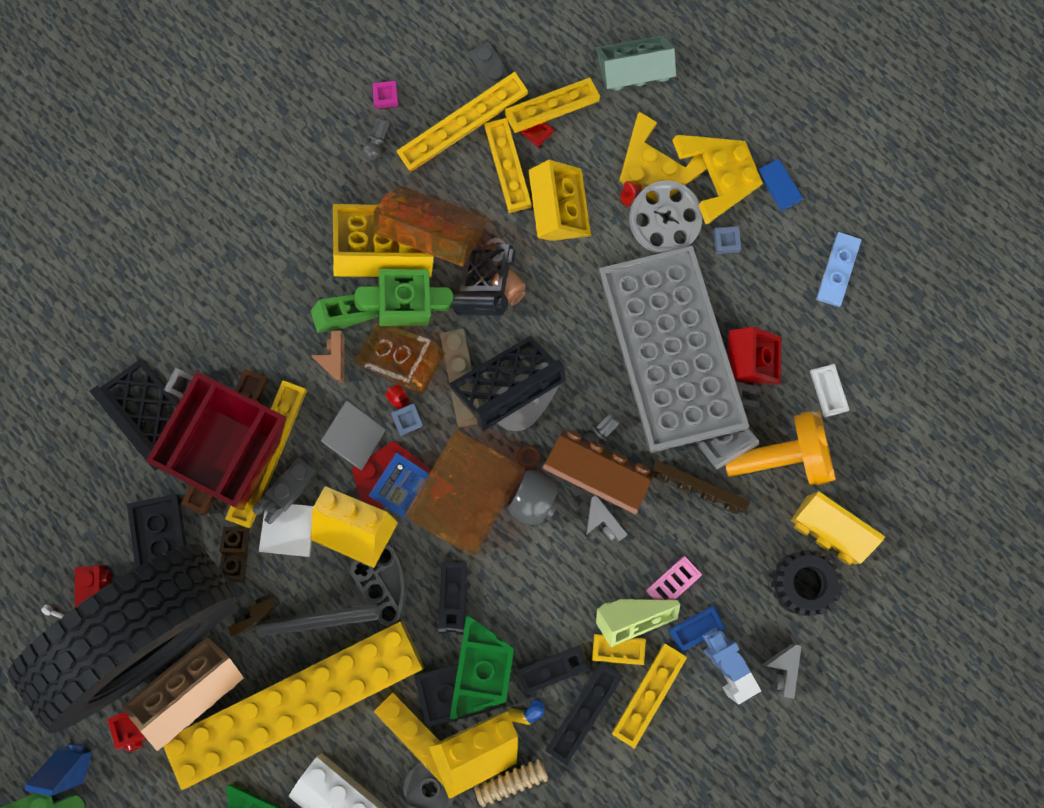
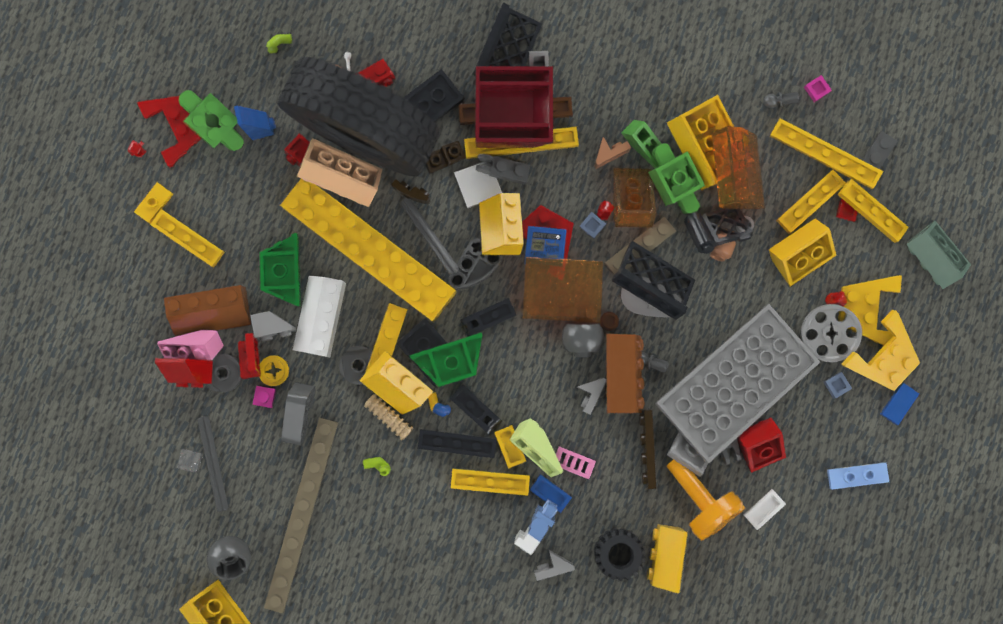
camera: 60 degrees right, 5 degrees up
(353, 435) = (563, 194): light grey piece -> none

